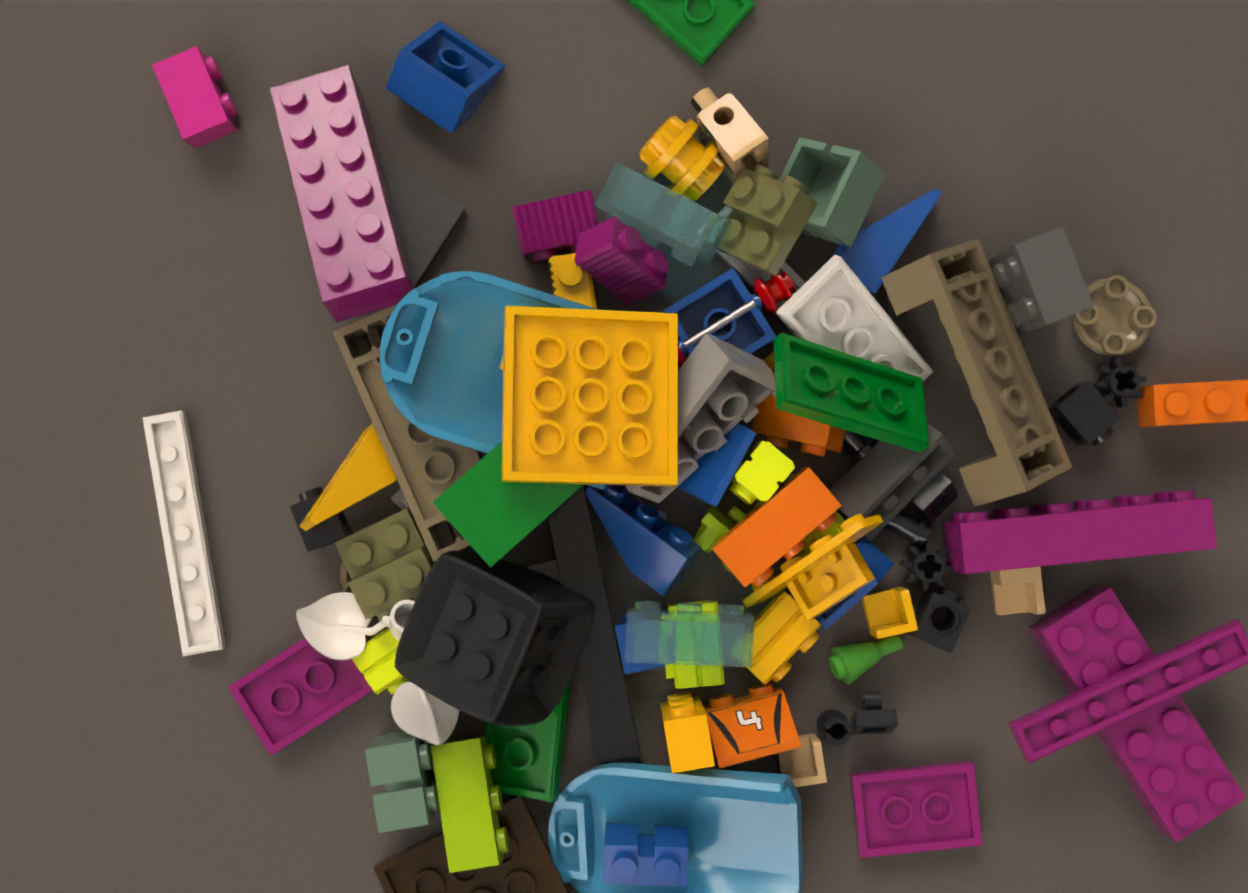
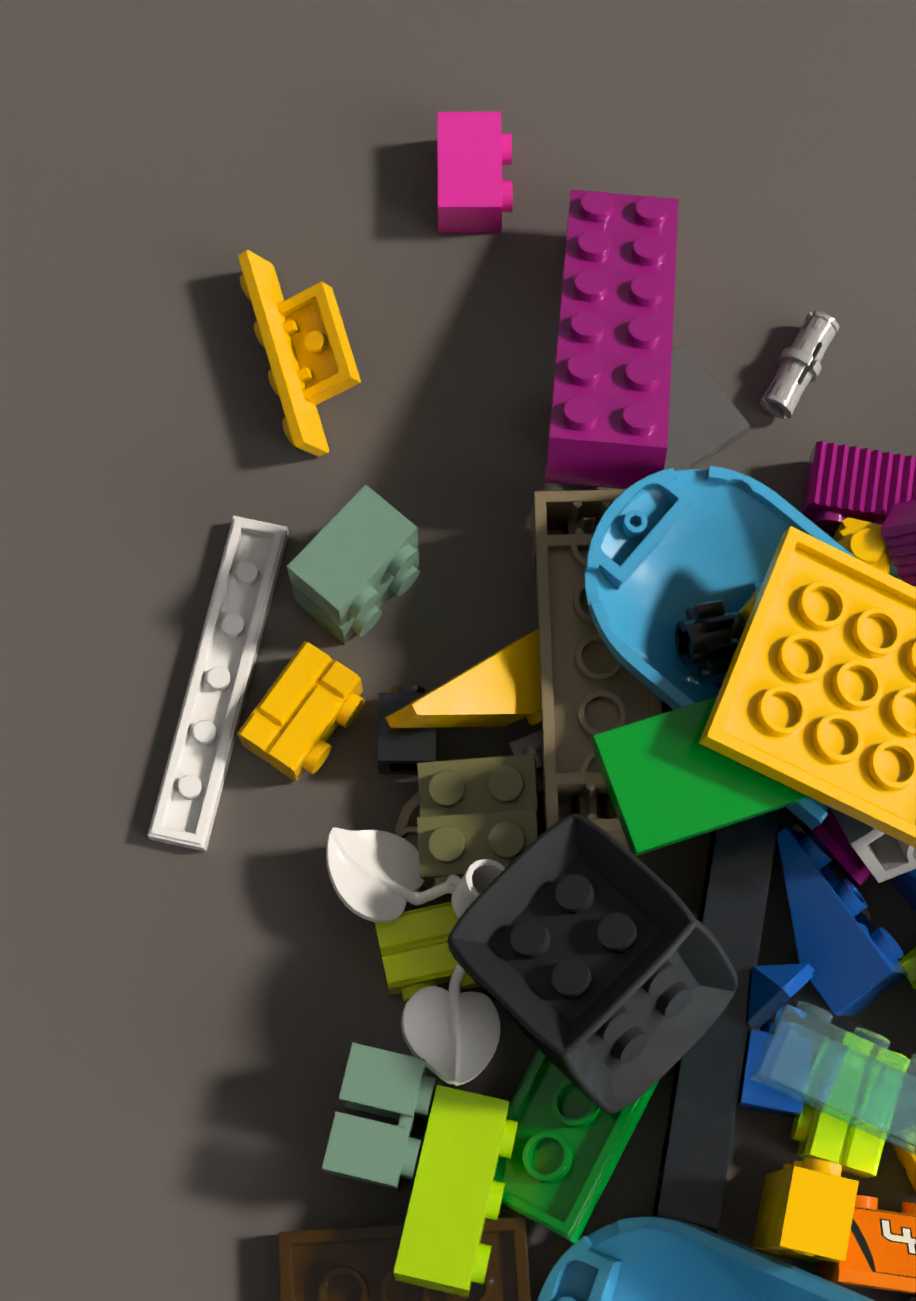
camera: 25 degrees right, 15 degrees down
(135, 280) = (304, 349): none -> yellow bracket
(237, 426) = (356, 565): none -> sand green piece
(247, 535) = (302, 712): none -> yellow brick
(296, 693) = (281, 946): magenta plate -> none
(444, 76) = (784, 263): blue slope -> none
(481, 149) = (799, 364): none -> light grey pin
(484, 392) = (708, 637): none -> black gear
(618, 595) = (773, 987): none -> blue slope

